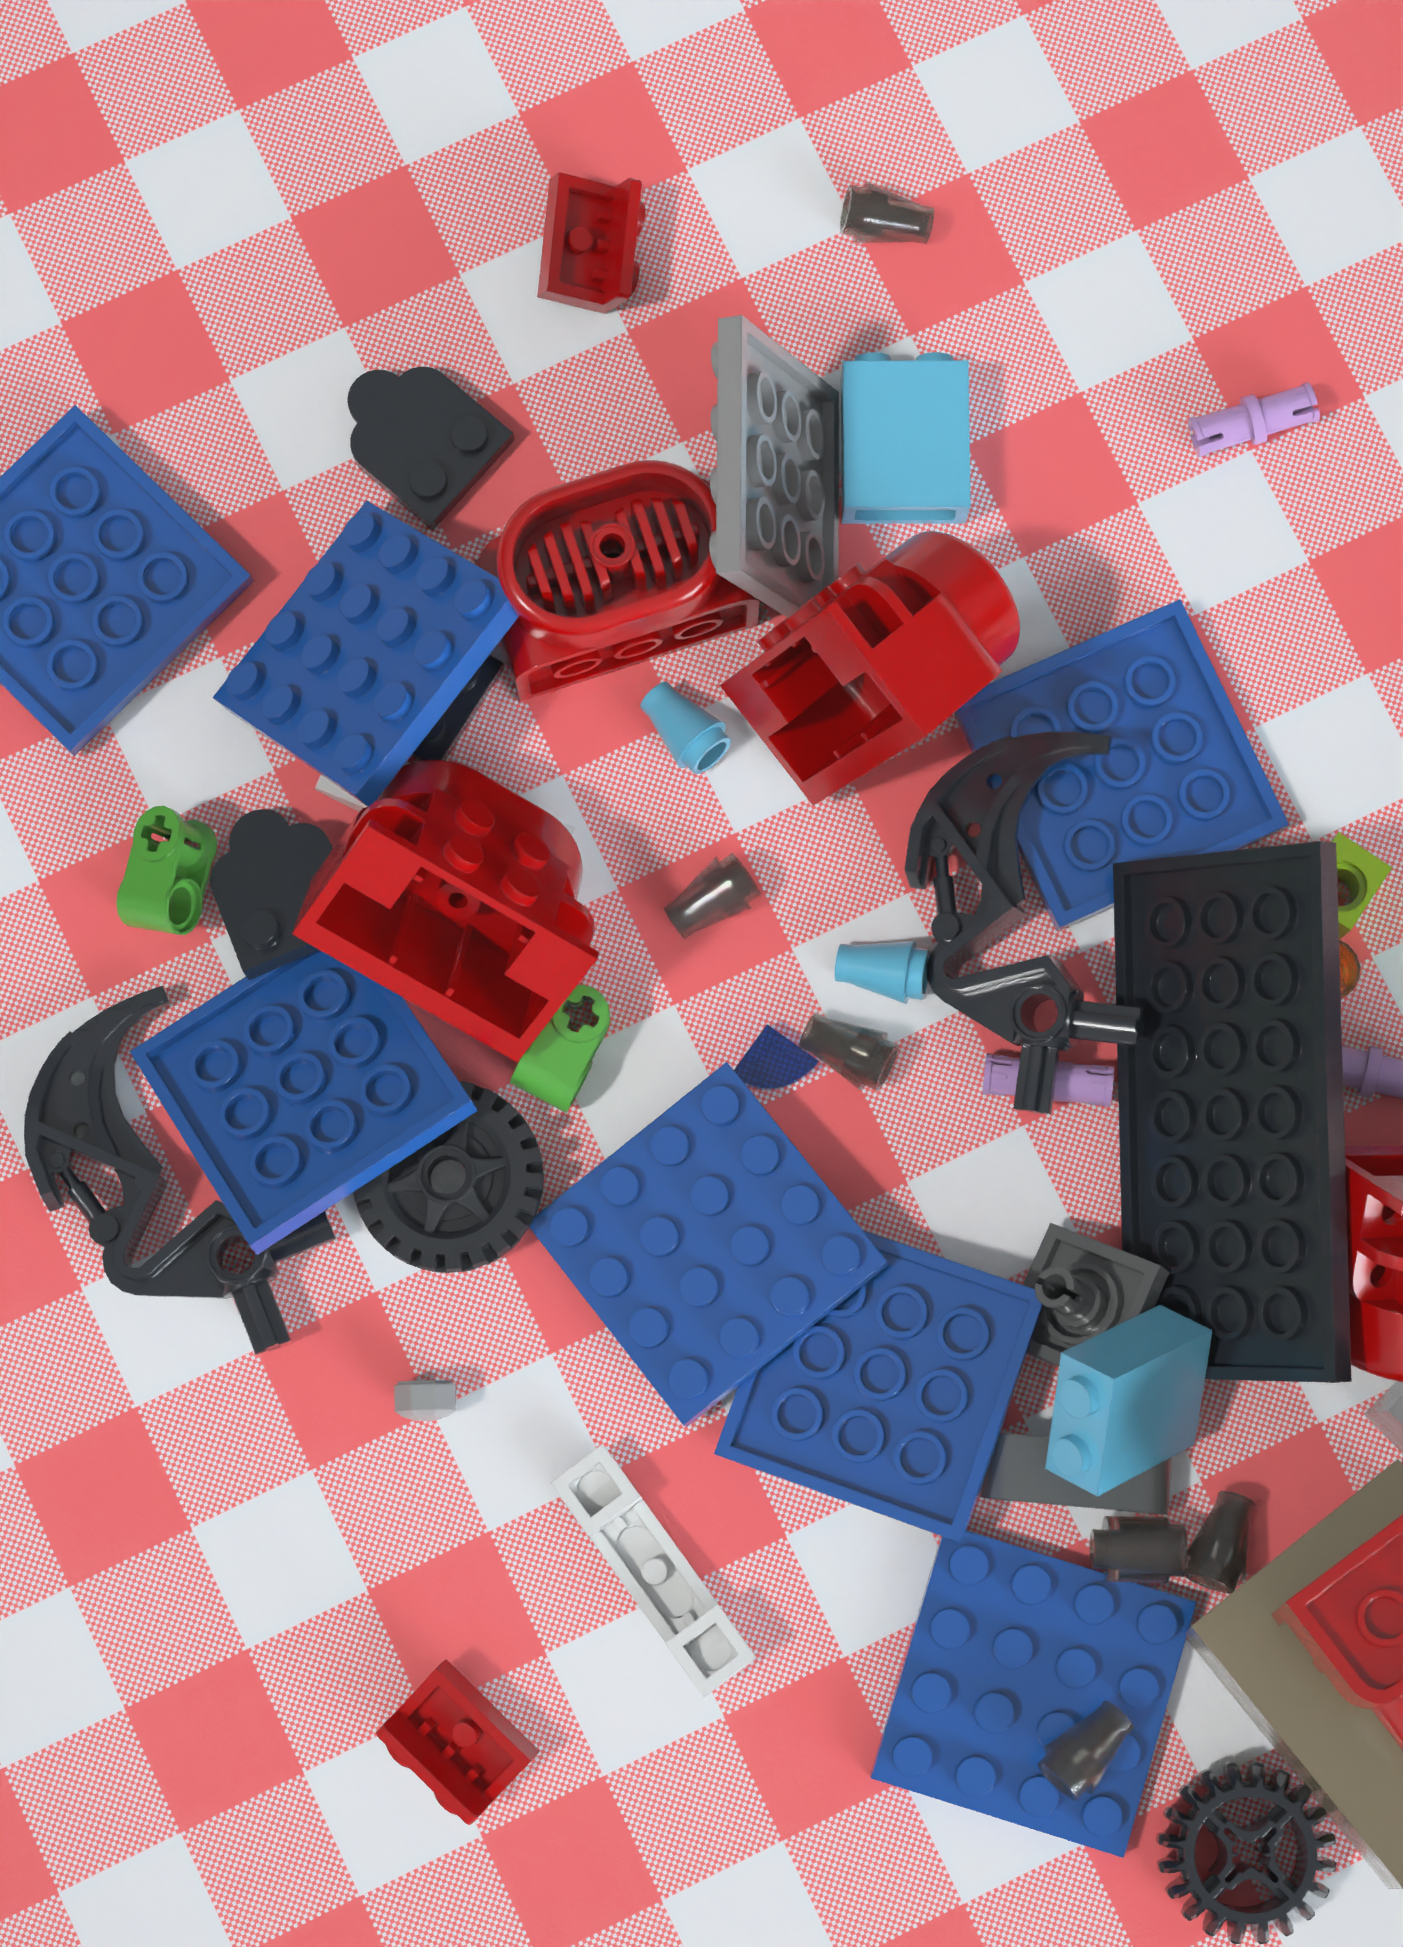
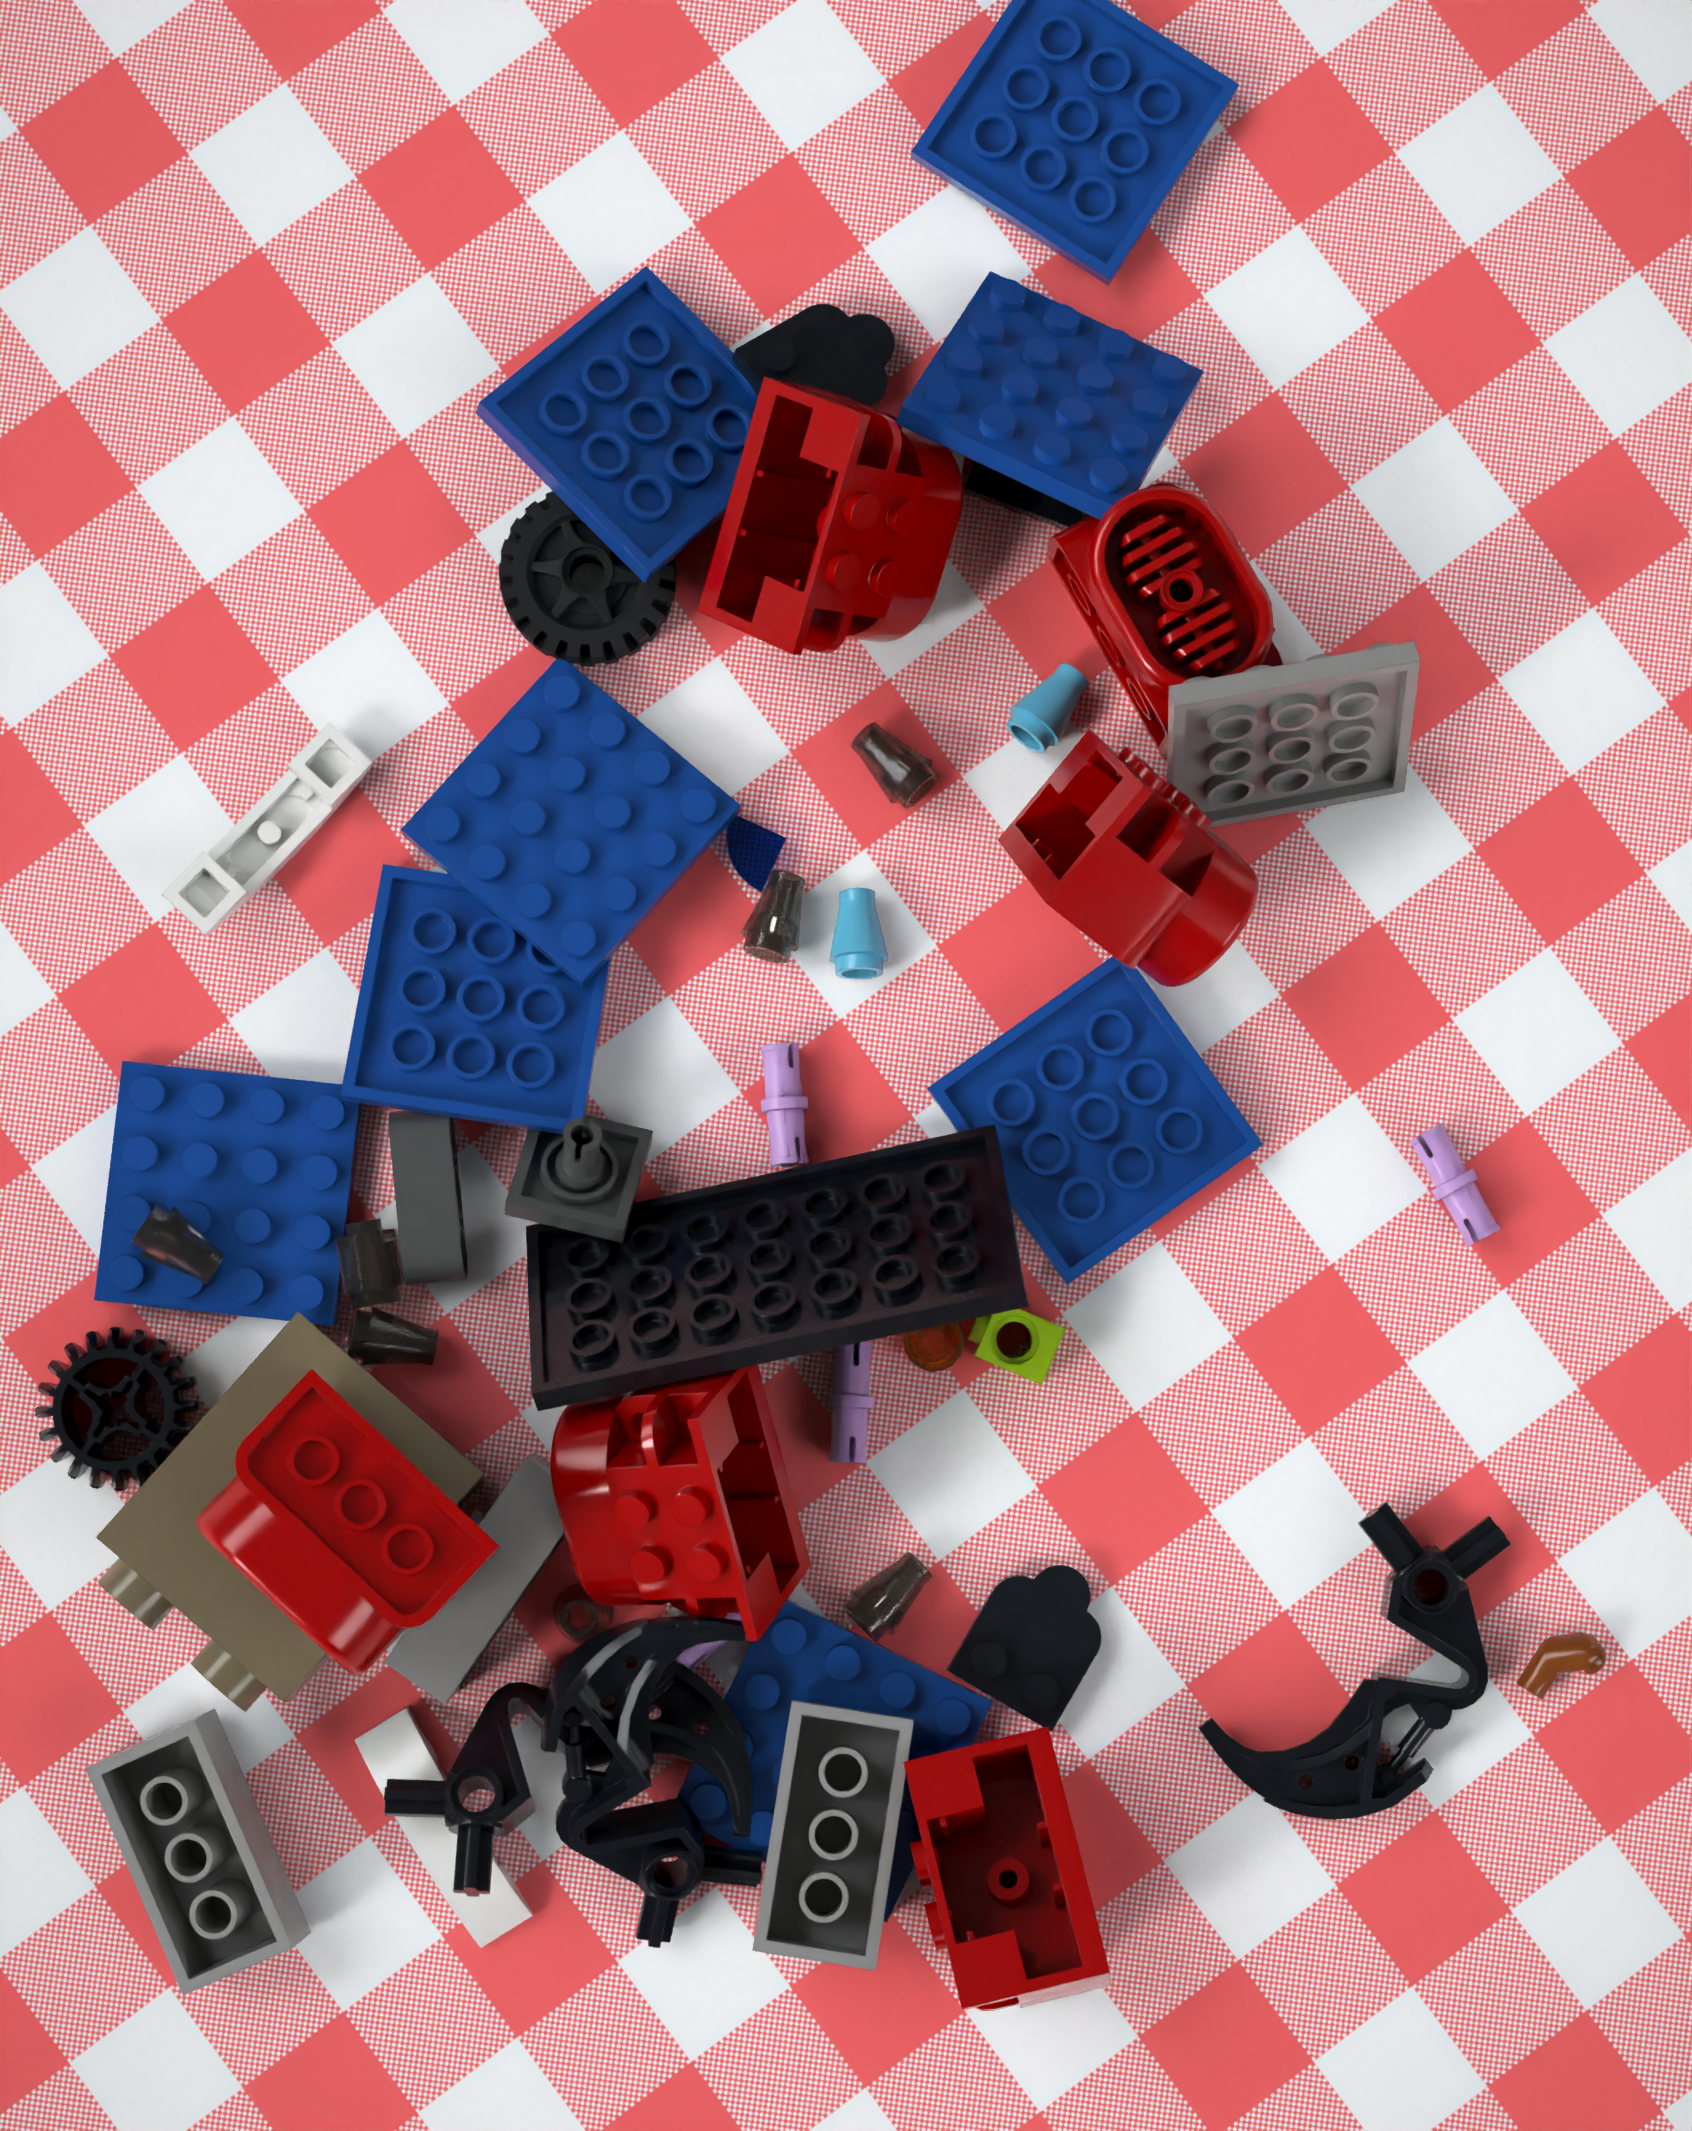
camera: 80 degrees right, 5 degrees up
(166, 878) = (809, 262): bright green piece -> none
(193, 1258) = (467, 362): black piece -> none
(422, 439) = (1276, 411): black plate -> none
(425, 1399) = (383, 596): light grey tile -> none
(456, 1743) = (83, 685): red bracket -> none
(562, 1058) = (717, 657): bright green piece -> none
(590, 242) = (1496, 527): red bracket -> none
(882, 216) = (1581, 799): clear smoke cone -> none
(905, 440) = (1366, 858): medium azure brick -> none
(1006, 995) = (850, 1053): black piece -> none
(1128, 1399) = (492, 1220): medium azure brick -> none

